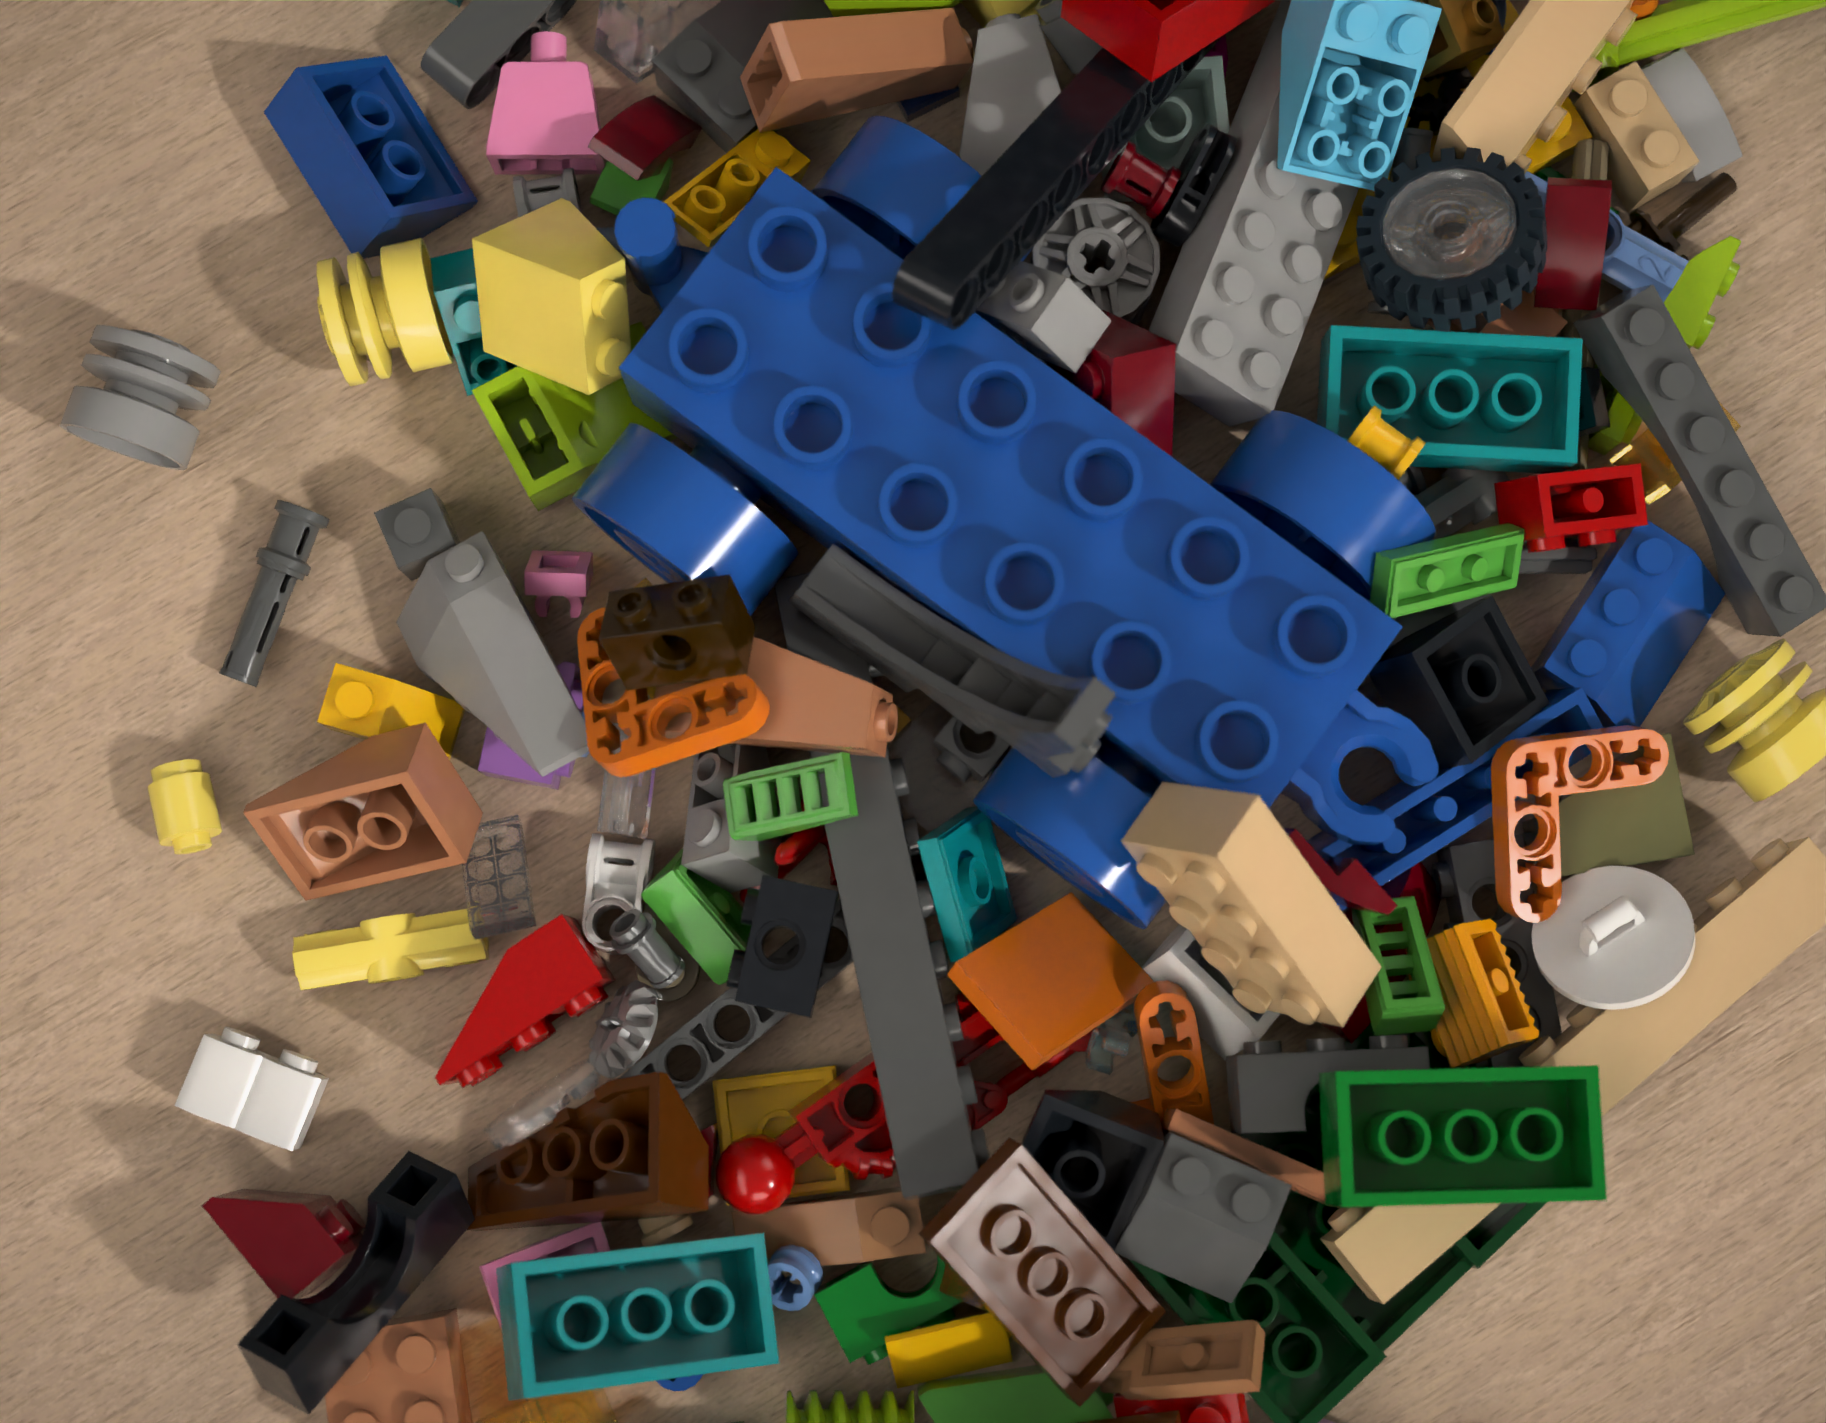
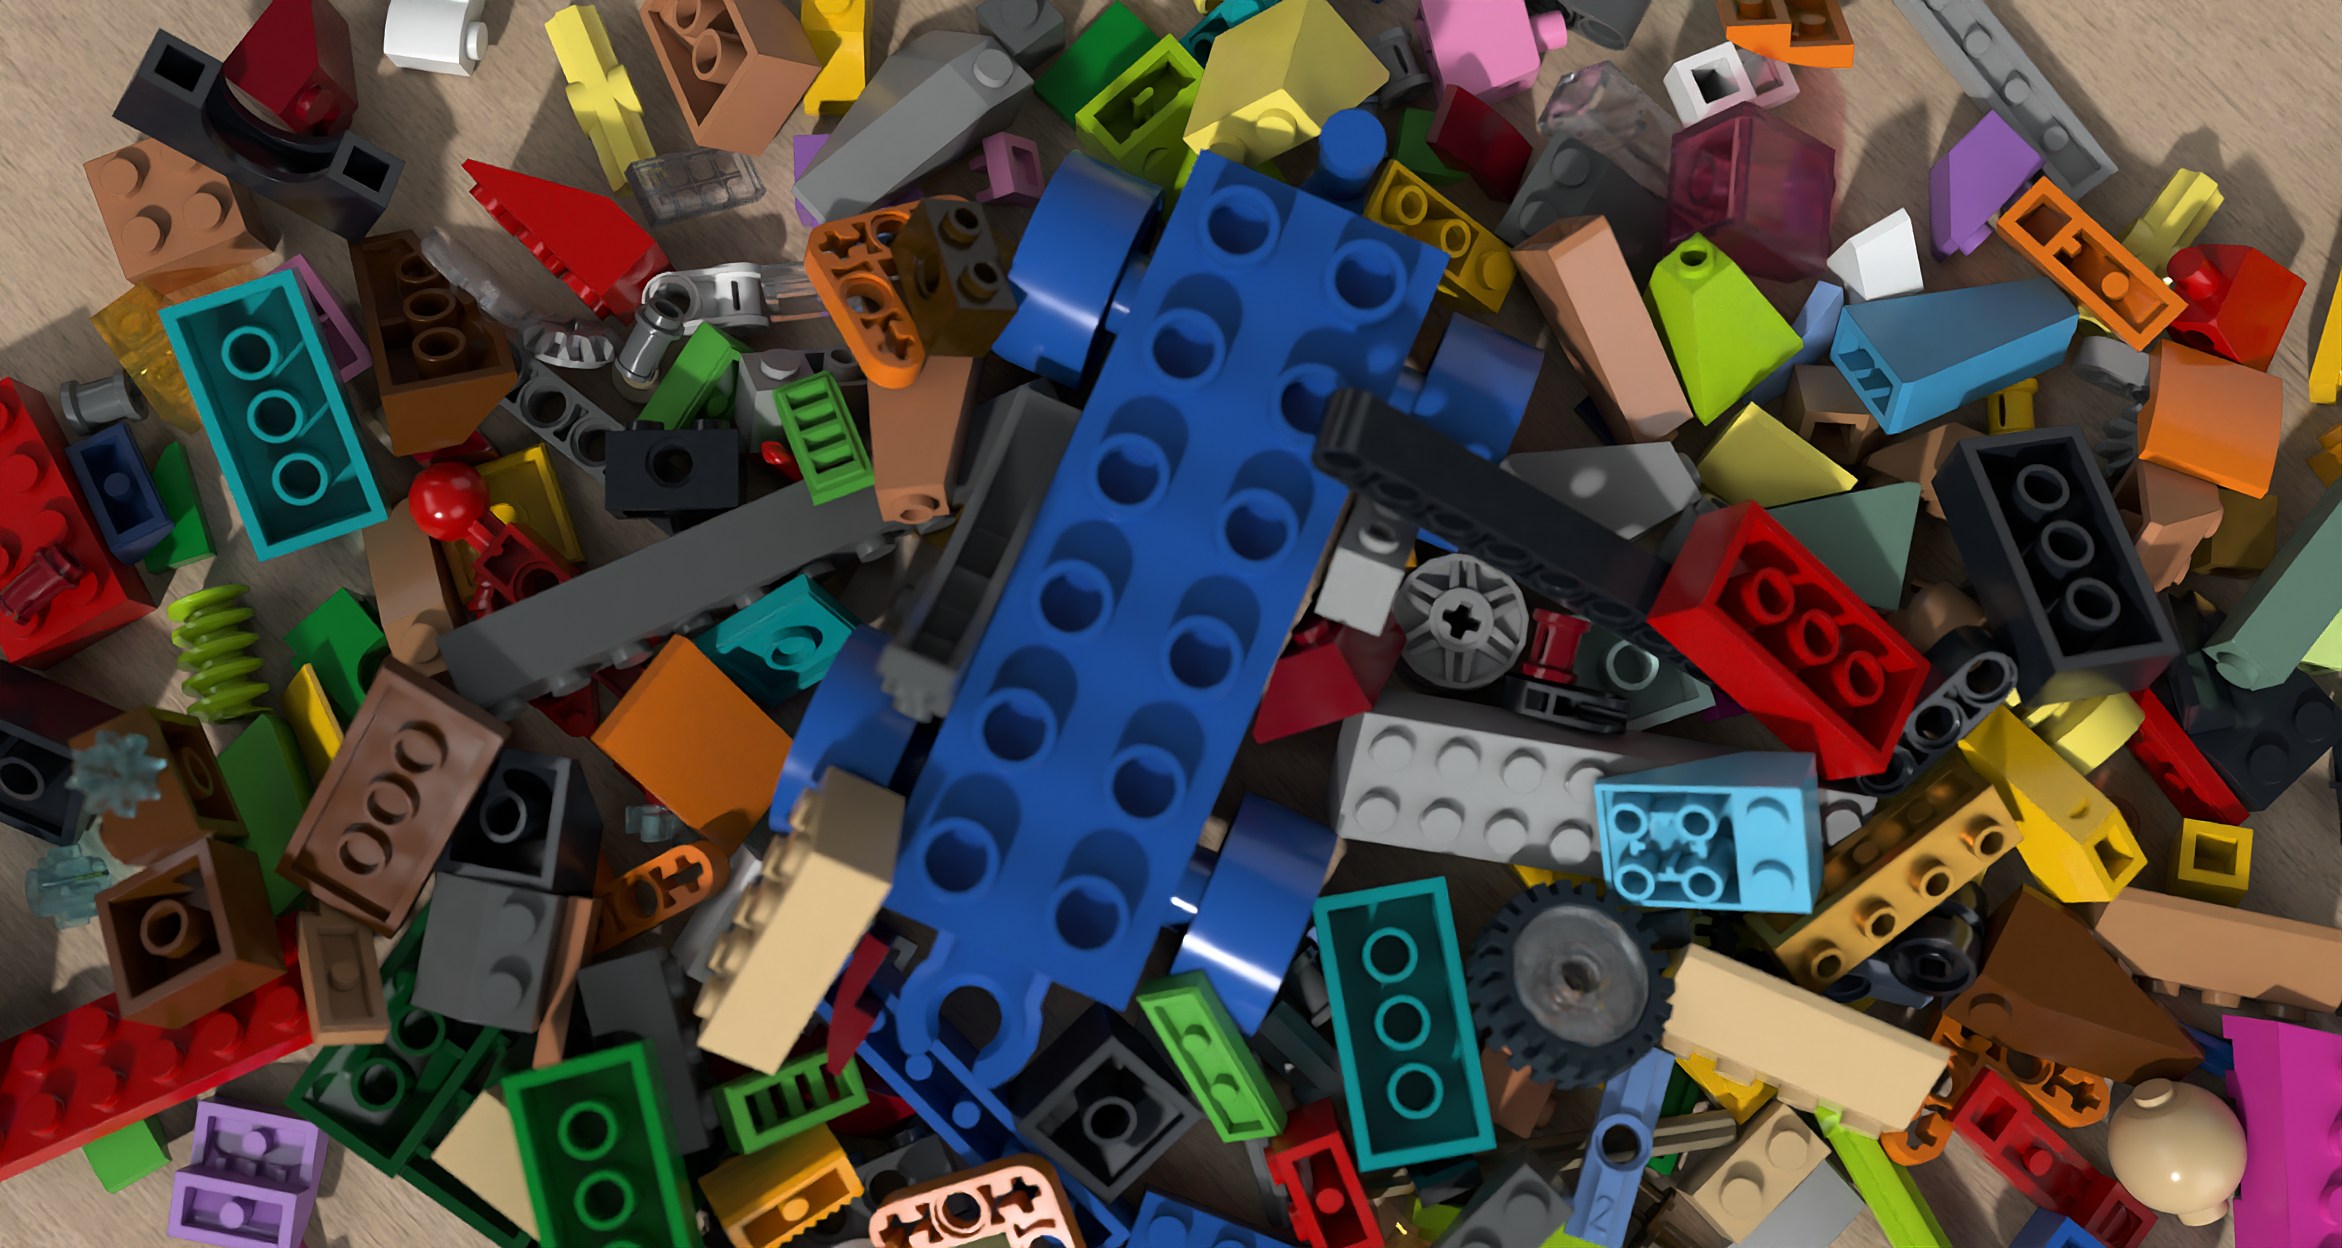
camera: 75 degrees right, 0 degrees up
(473, 474) = (1094, 62): none -> green tile
(803, 1267) = (356, 561): medium blue bush -> none
(1385, 443) = (1323, 956): yellow bush -> none
(1576, 243) = (1603, 1118): dark red slope -> none

